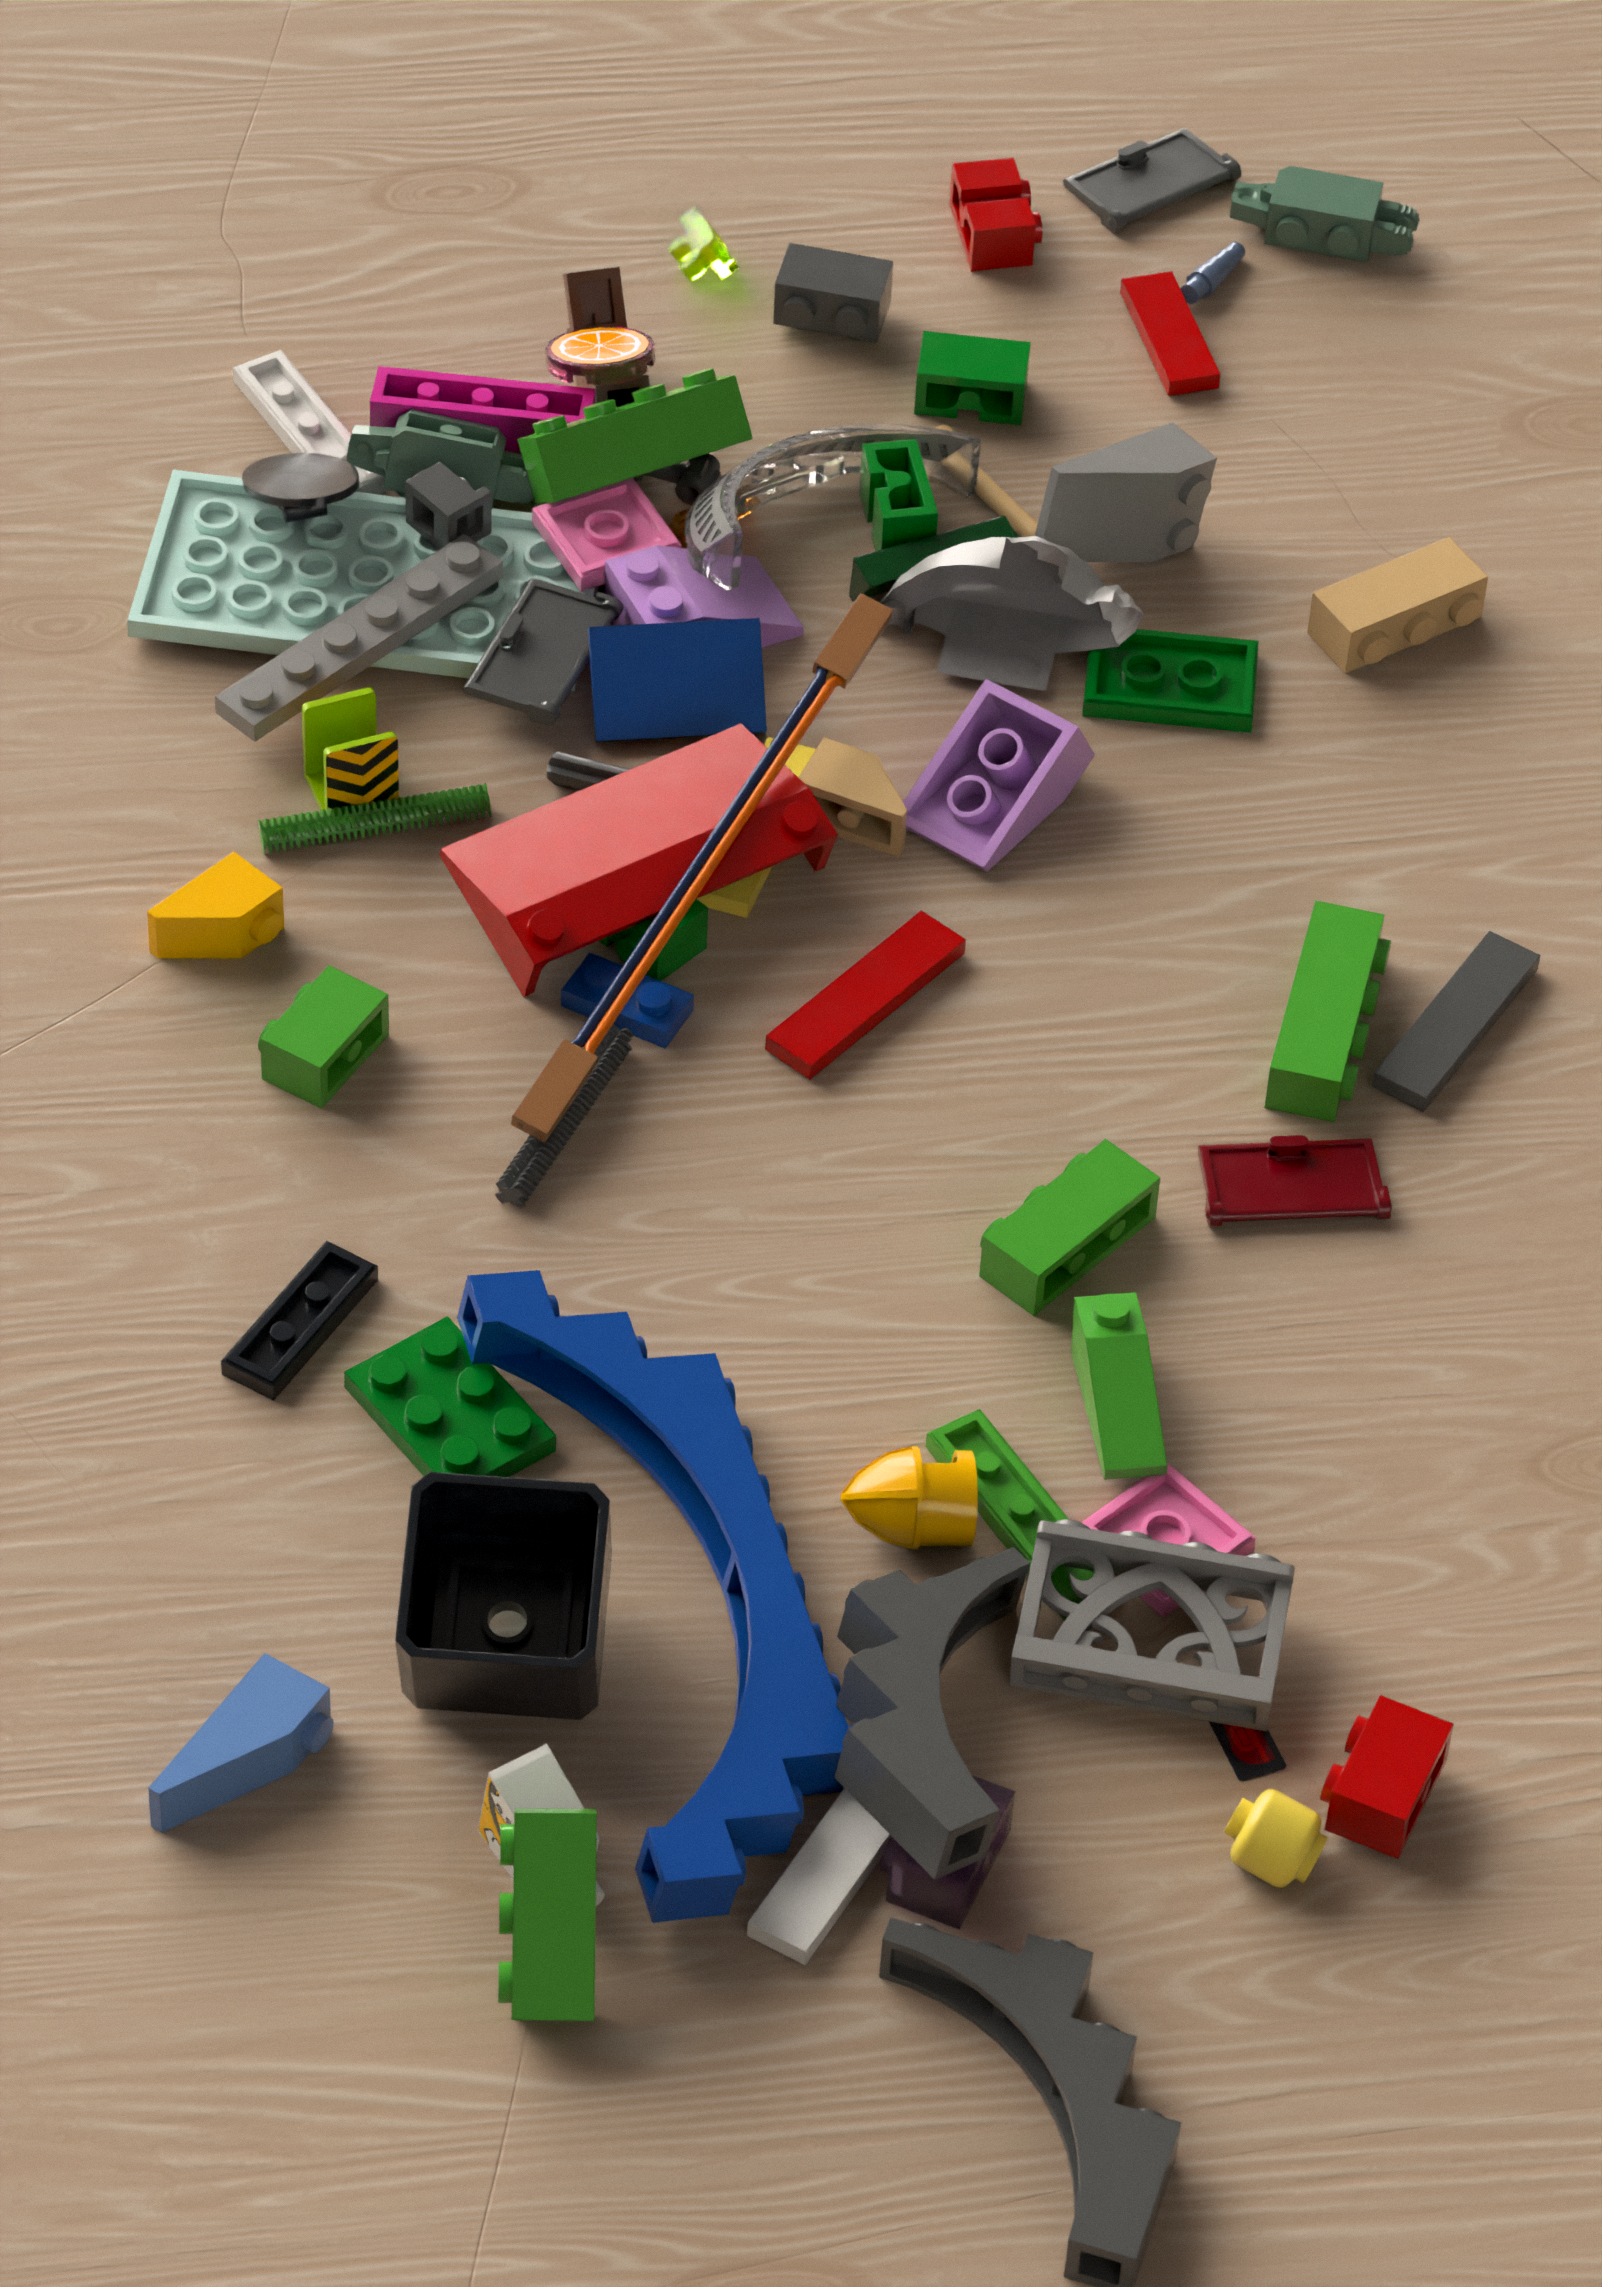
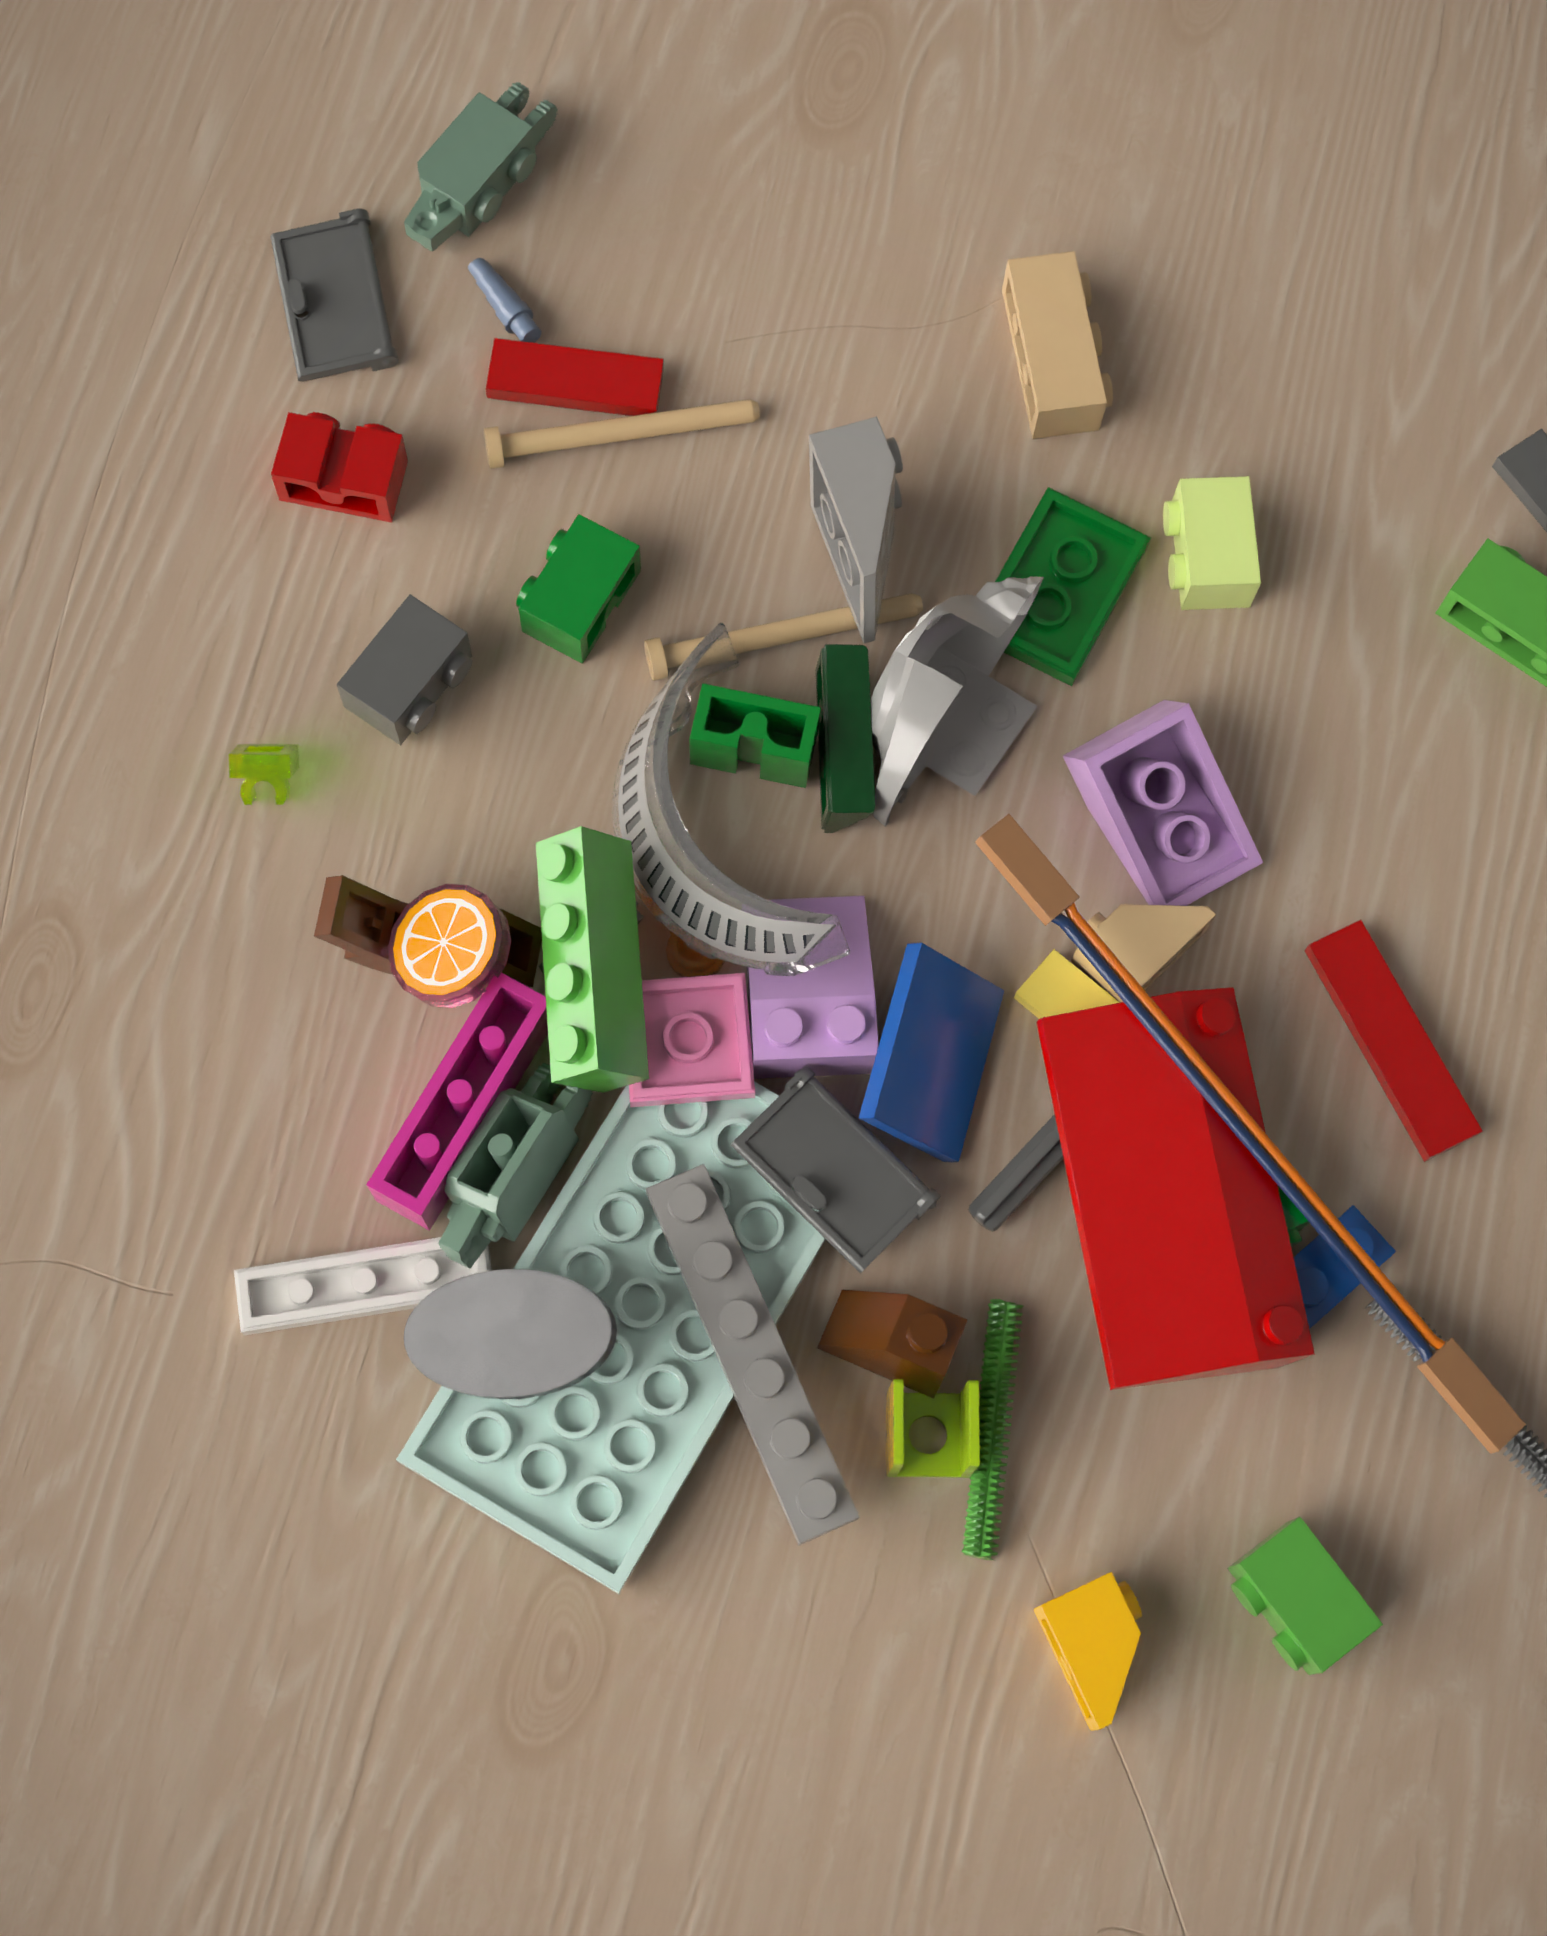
camera: 70 degrees left, 25 degrees up
(423, 737) = (894, 1337): none -> reddish brown slope
(446, 506) = (602, 1193): dark grey brick -> none
(1073, 301) = (616, 430): none -> tan bar
(1270, 755) = (1213, 543): none -> yellowish green brick

